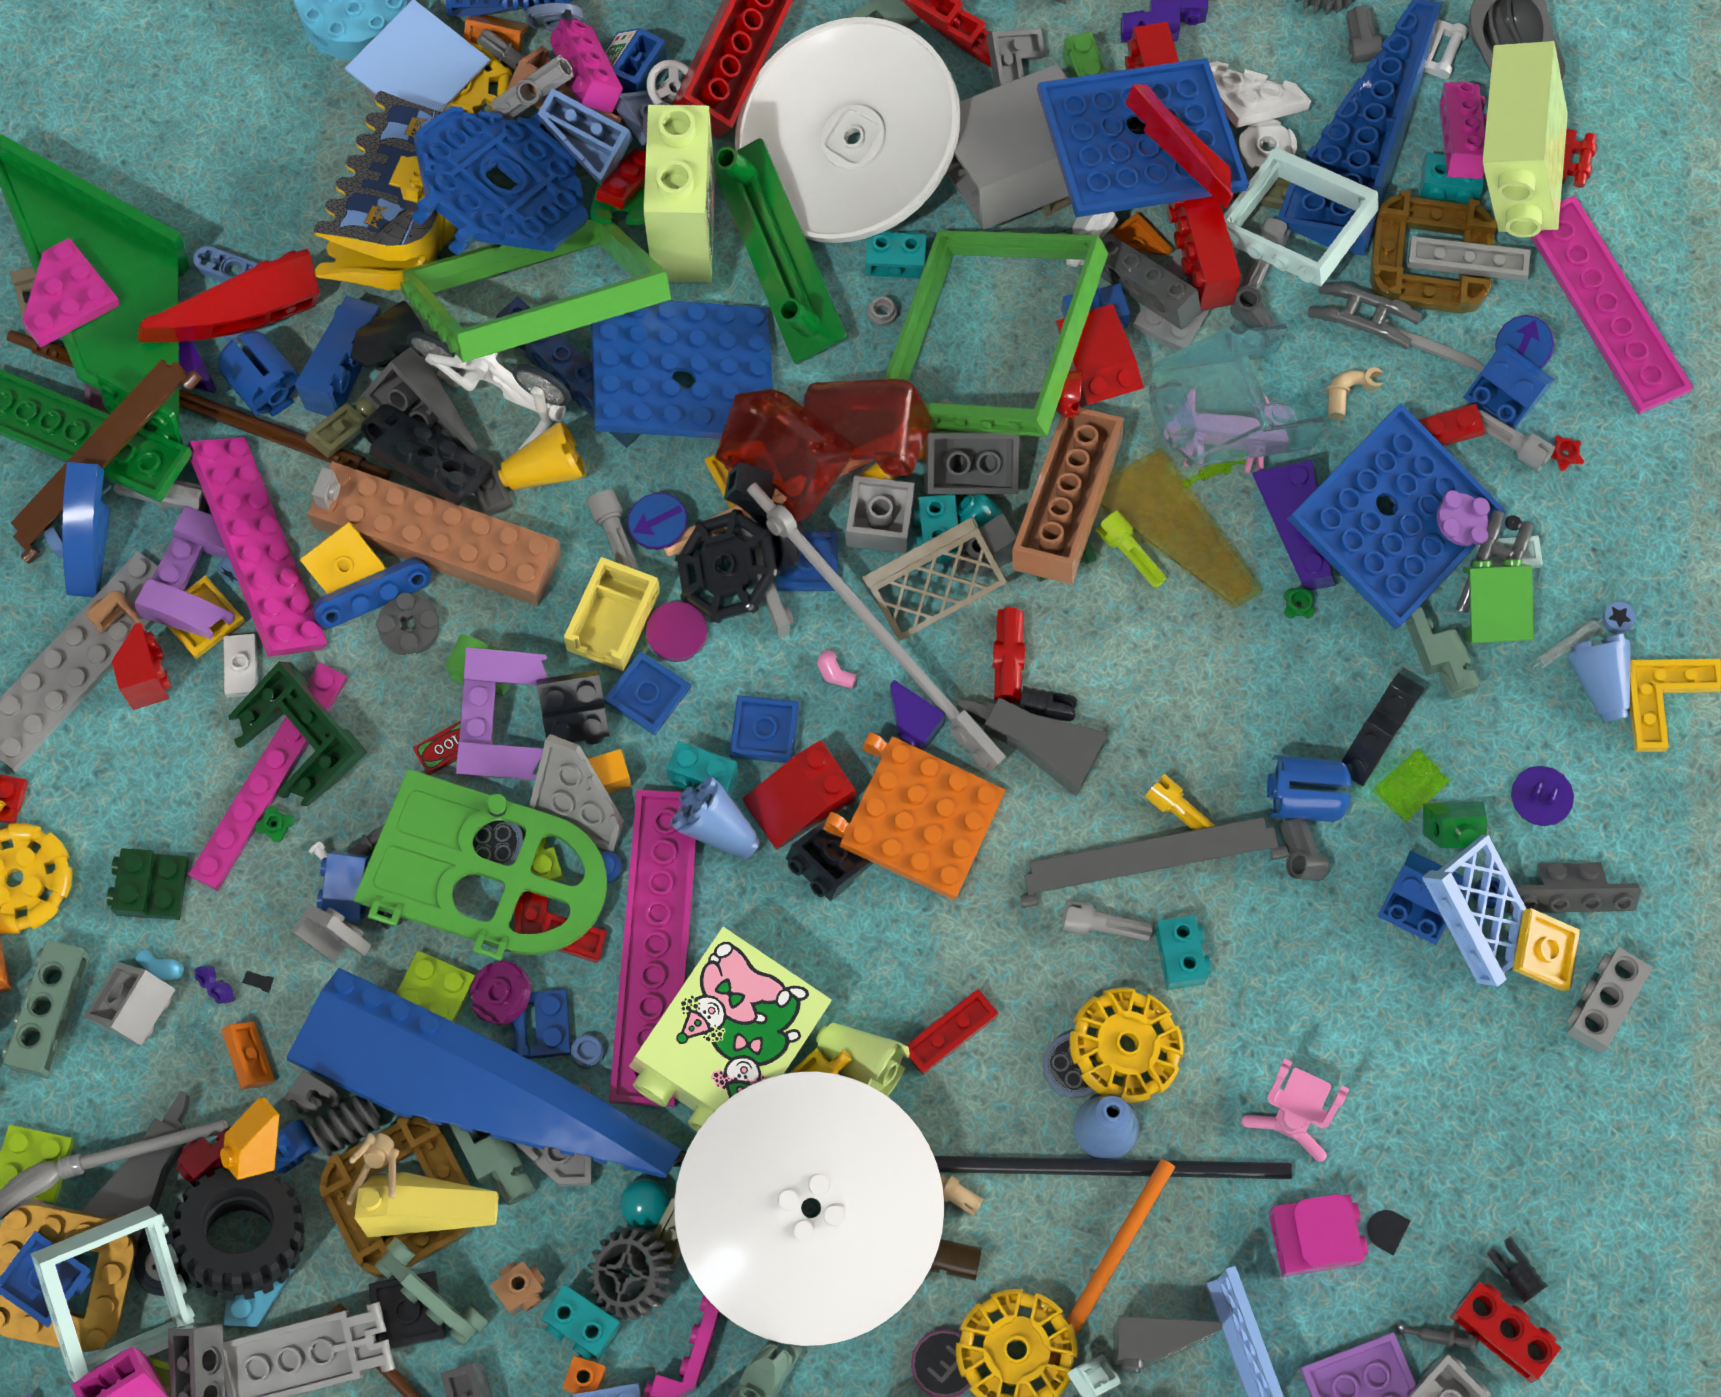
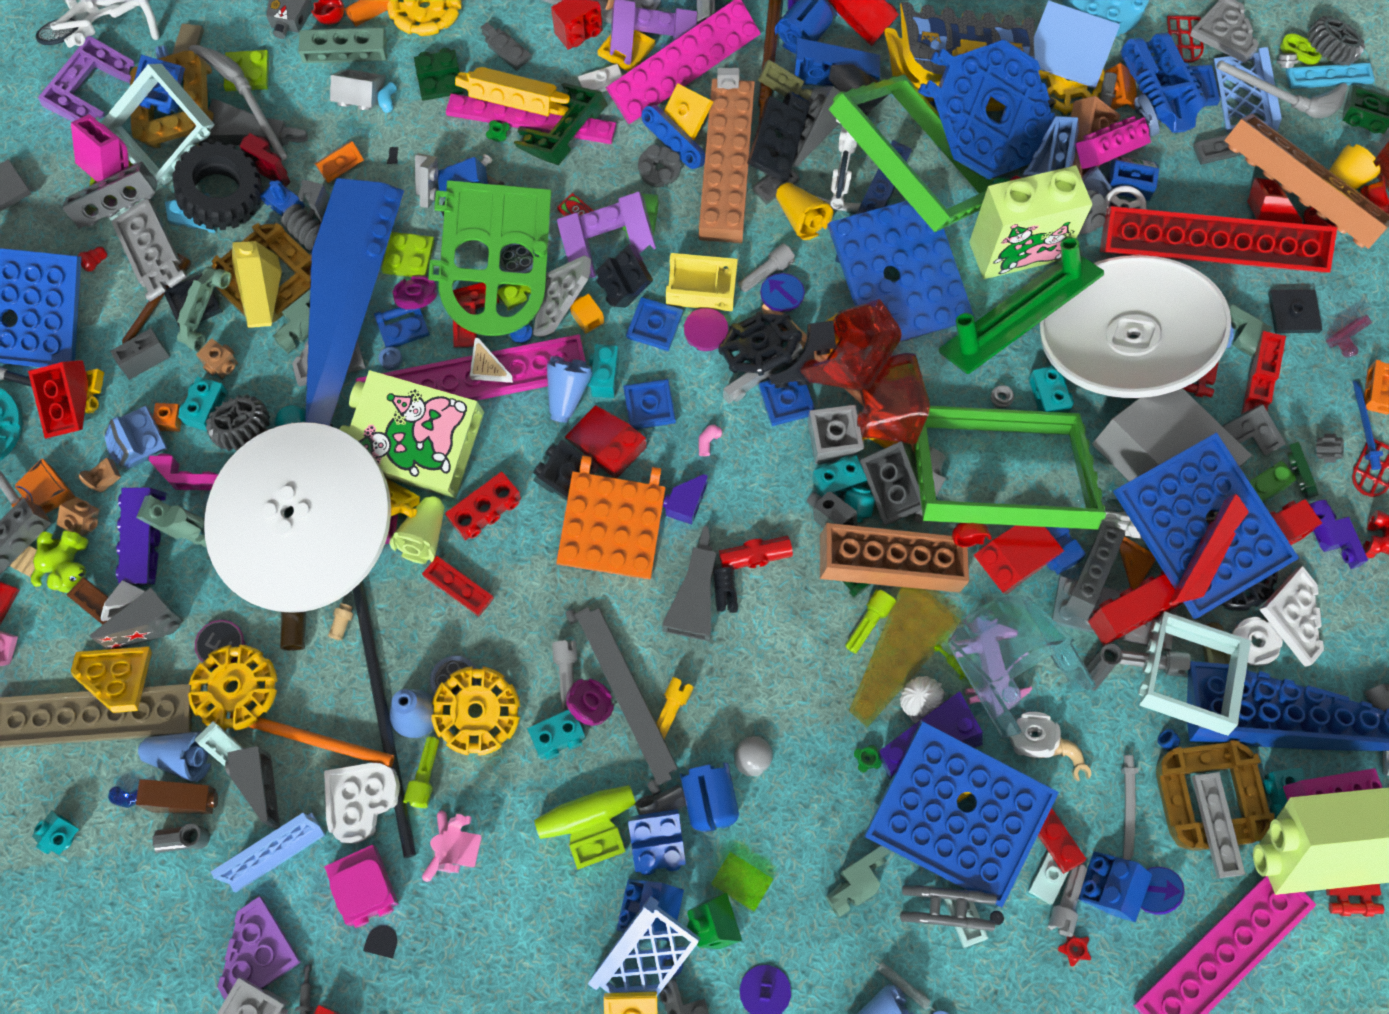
camera: 75 degrees right, 0 degrees up
(134, 781) = (505, 46): none -> dark grey hinge
(217, 989) = (379, 131): dark purple piece -> none
(225, 782) = (513, 91): none -> yellow hinge
(252, 1141) = (265, 167): light orange slope -> none
(377, 1152) = (286, 247): tan plant -> none
(544, 79) = (1073, 107): light grey piece -> none
(647, 920) = (486, 366): none -> tile
(848, 988) = (485, 495): none -> red brick
(923, 554) = (811, 472): dark tan fence -> none
(962, 725) = (685, 534): light grey bar -> none
(1069, 21) = (1300, 464): none -> dark green plate
(1152, 901) = (589, 702): none -> magenta tile
(1203, 1218) = (356, 798): none -> white plate
(1211, 1138) = (419, 789): none -> lime piece
(1243, 519) = (921, 697): none -> white hair
(1264, 731) = (753, 756): none -> light grey hair
(1305, 941) = (588, 822): none -> lime plate
(1336, 405) = (1040, 746): none -> white plate
(1347, 865) = (656, 841): none -> blue plate
(1354, 272) = (1168, 740): none -> blue hinge
(1372, 326) = (1127, 762): dark grey piece -> none
(1381, 727) = (781, 844): black arch -> none
(1463, 518) = (976, 868): medium lavender piece -> none
(1484, 455) = (1047, 880): none -> light aqua plate
(1500, 601) = (915, 914): bright green panel -> none

